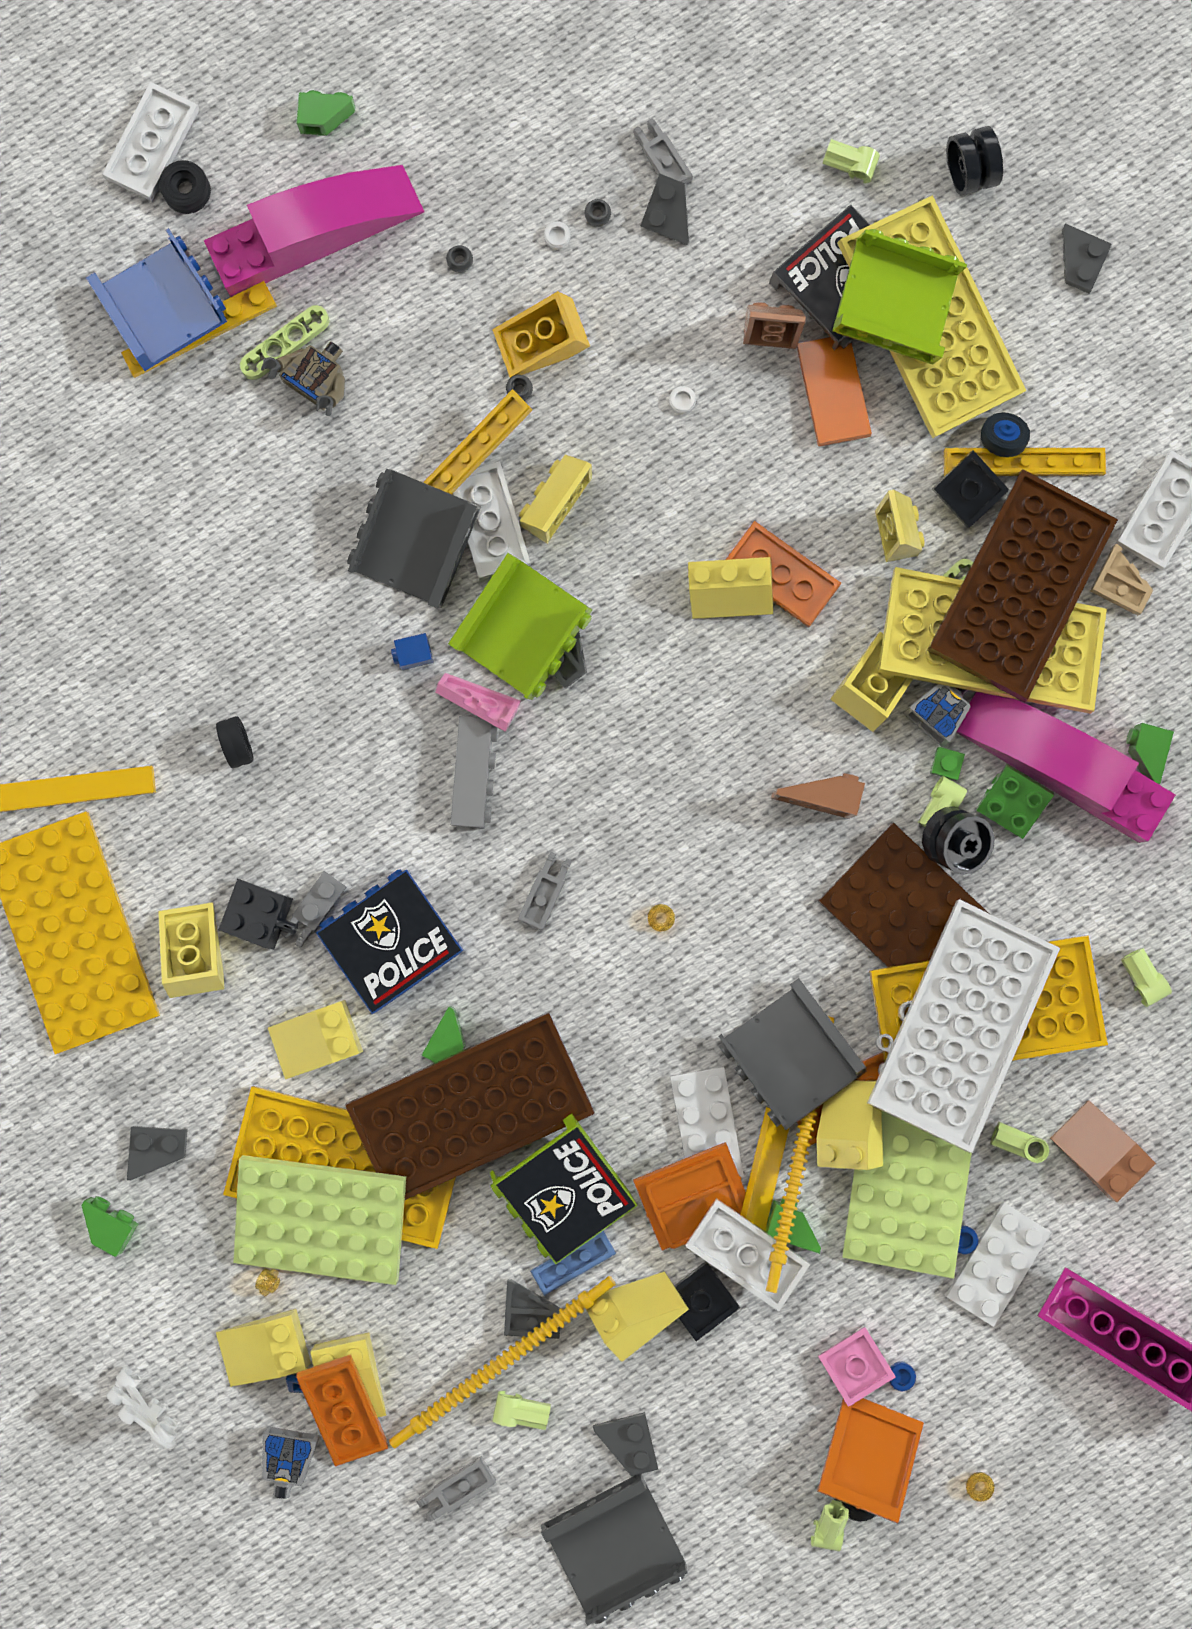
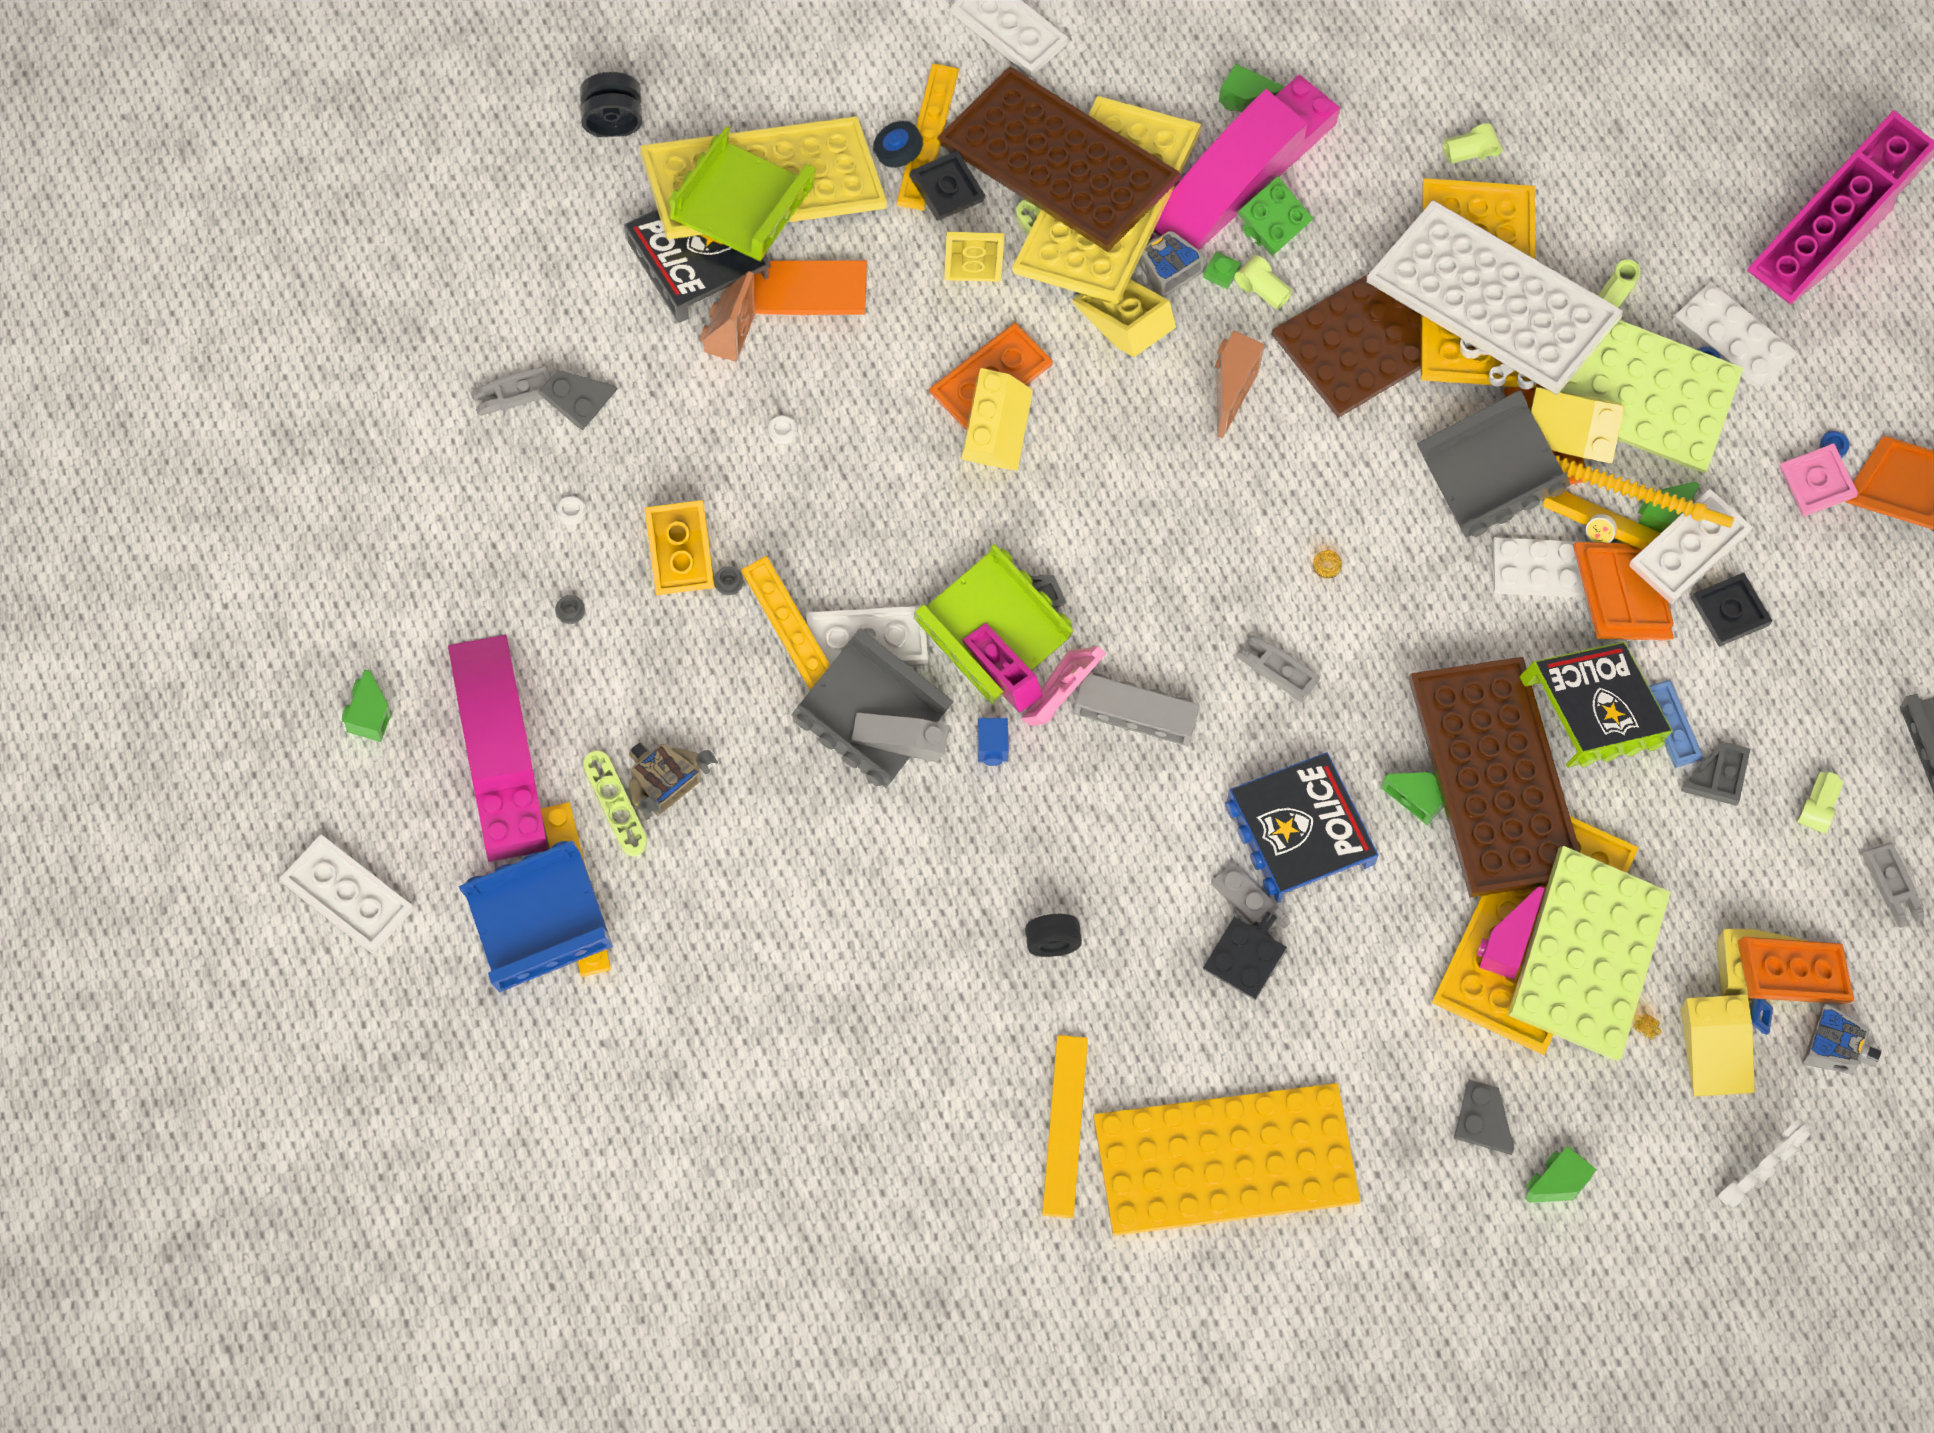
camera: 80 degrees left, 20 degrees down
(181, 172) = (405, 852): black tyre -> none
(190, 950) = (1272, 1032): light yellow slope -> none
(313, 1145) = (1508, 940): none -> dark pink slope
(315, 1039) = (1393, 924): light yellow slope -> none
(396, 569) = (901, 735): none -> light grey slope
(418, 1424) = (1820, 907): yellow hose -> none
(481, 645) = (1004, 667): none -> dark pink slope
(555, 497) = (861, 562): light yellow slope -> none
(597, 204) = (557, 457): dark grey plate -> none
(629, 1442) = (1867, 708): dark grey wing -> none
(636, 1313) = (1735, 665): light yellow slope -> none
(750, 1166) = (1601, 529): none -> light yellow tile
(854, 161) = (574, 214): yellowish green piece -> none
(958, 840) = (1305, 269): black wheel -> none
(1082, 257) = (732, 38): dark grey wing -> none
(1103, 1151) = (1639, 218): nougat slope -> none
(1122, 583) = (1073, 78): tan wing -> none

